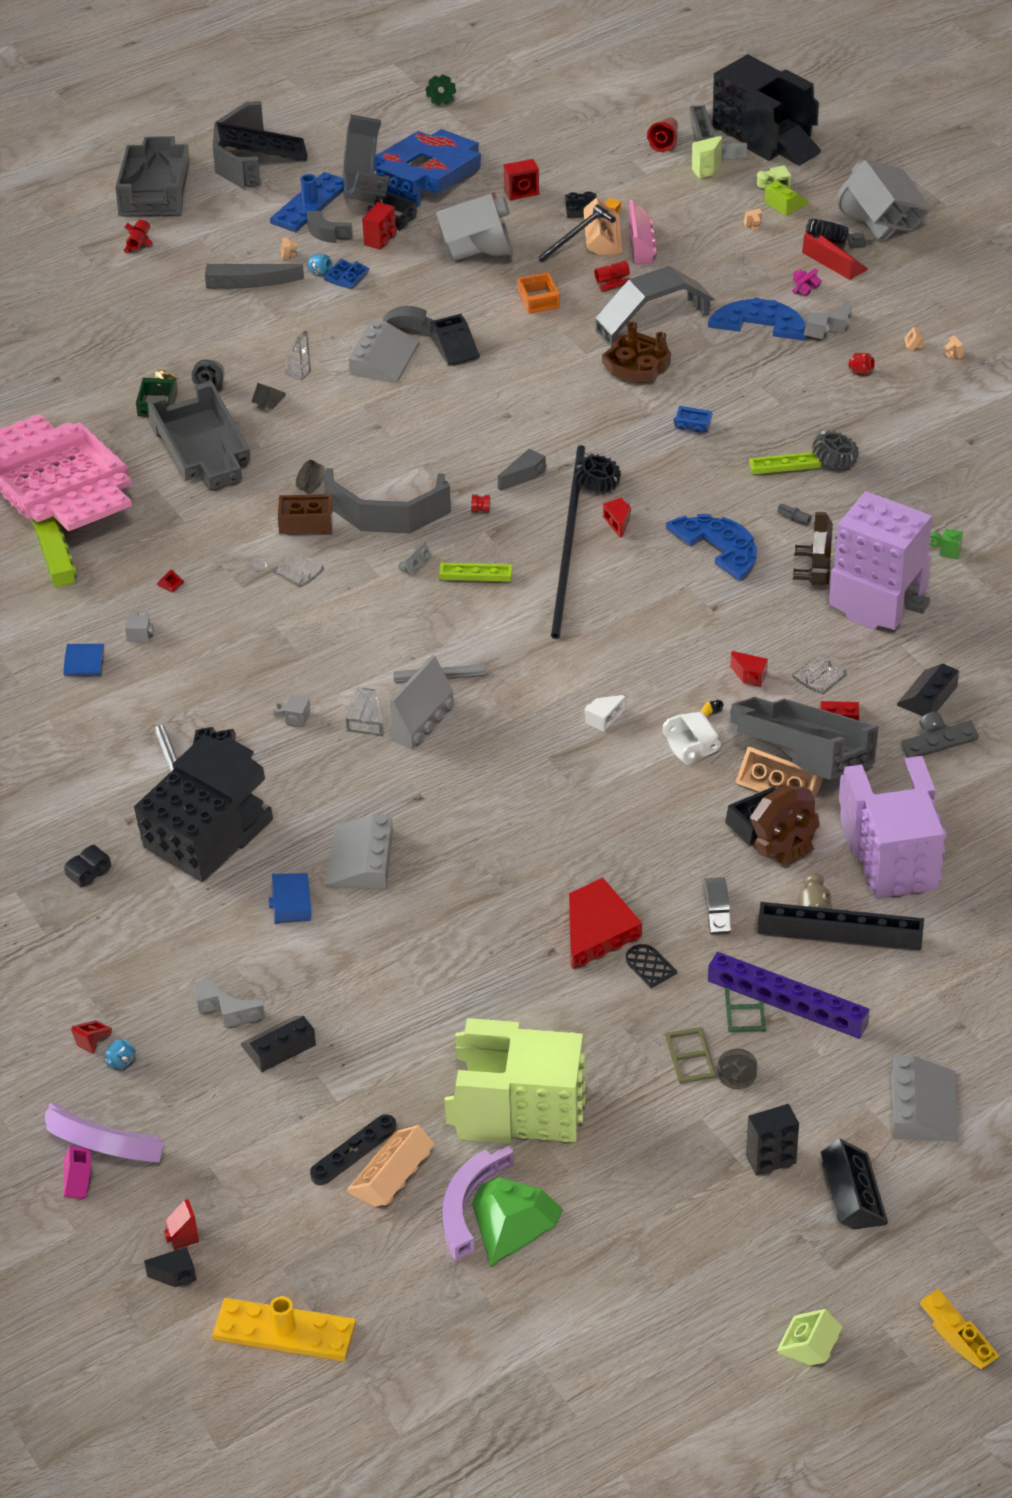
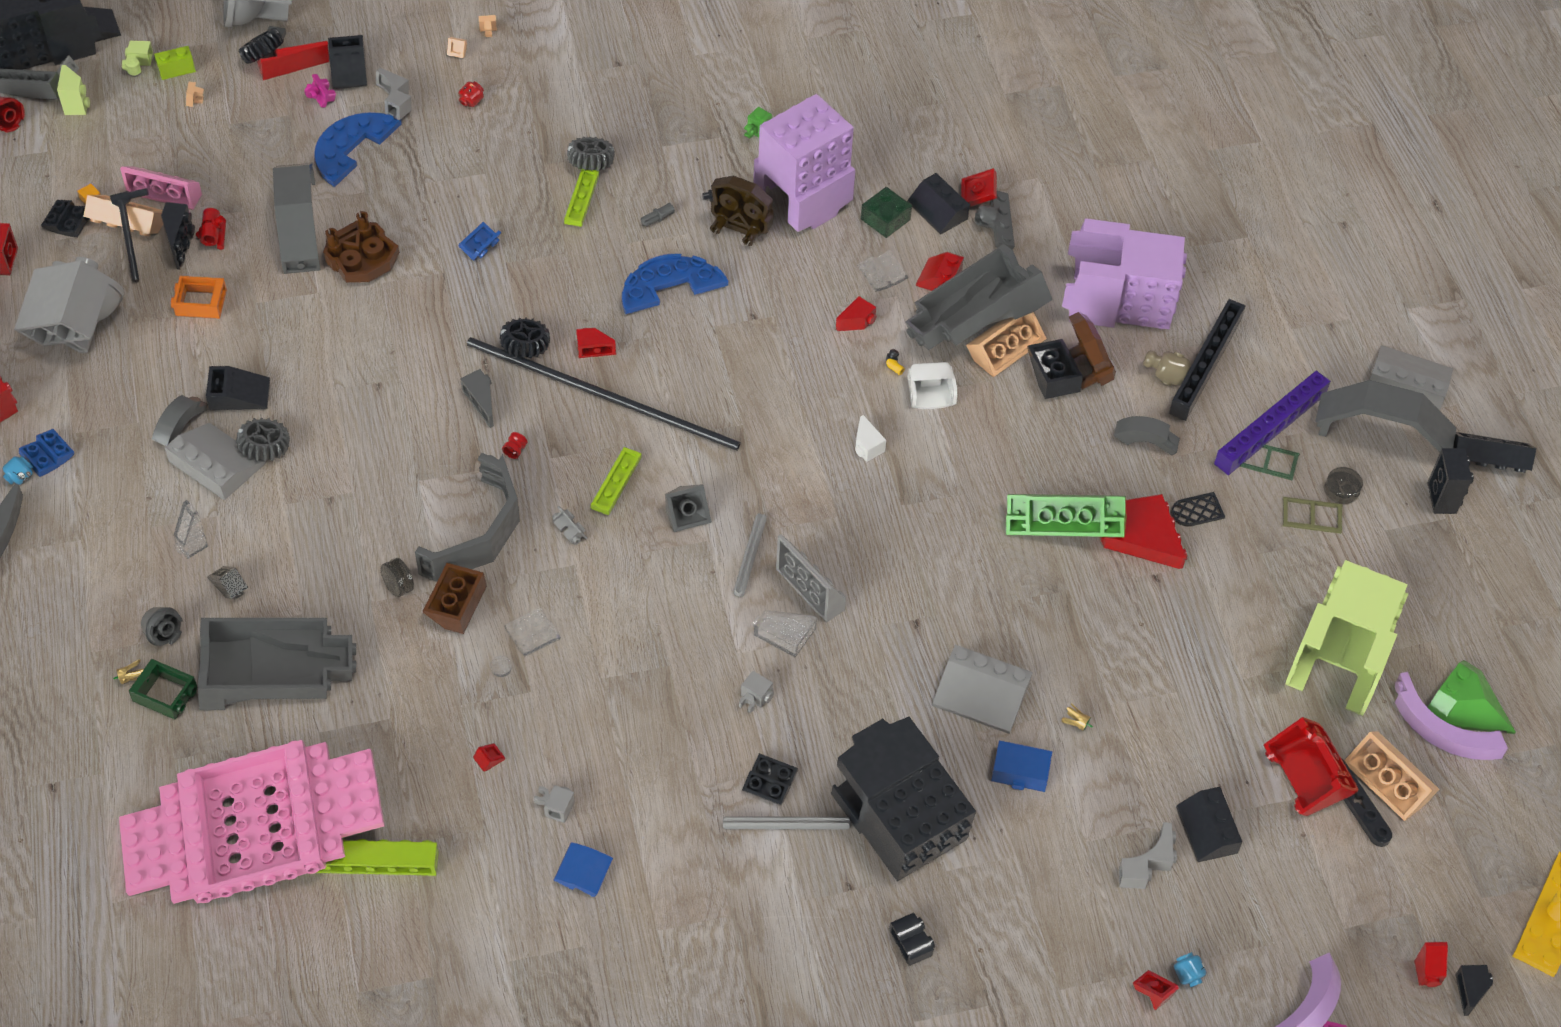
camera: 75 degrees left, 10 degrees up
(356, 928) = (1081, 720): none -> pearl gold piece
(389, 1092) = (1311, 766): none -> red windscreen
(411, 368) = (263, 439): none -> dark grey gear
(464, 617) = (687, 507): none -> dark grey slope
(577, 858) = (1066, 515): none -> bright green slope
(589, 255) = (178, 229): none -> black slope
(833, 1083) = (1390, 404): none -> dark grey panel
(849, 284) = (347, 61): none -> black slope
(892, 655) = (886, 212): none -> clear green brick
(965, 710) = (979, 187): none -> red plate

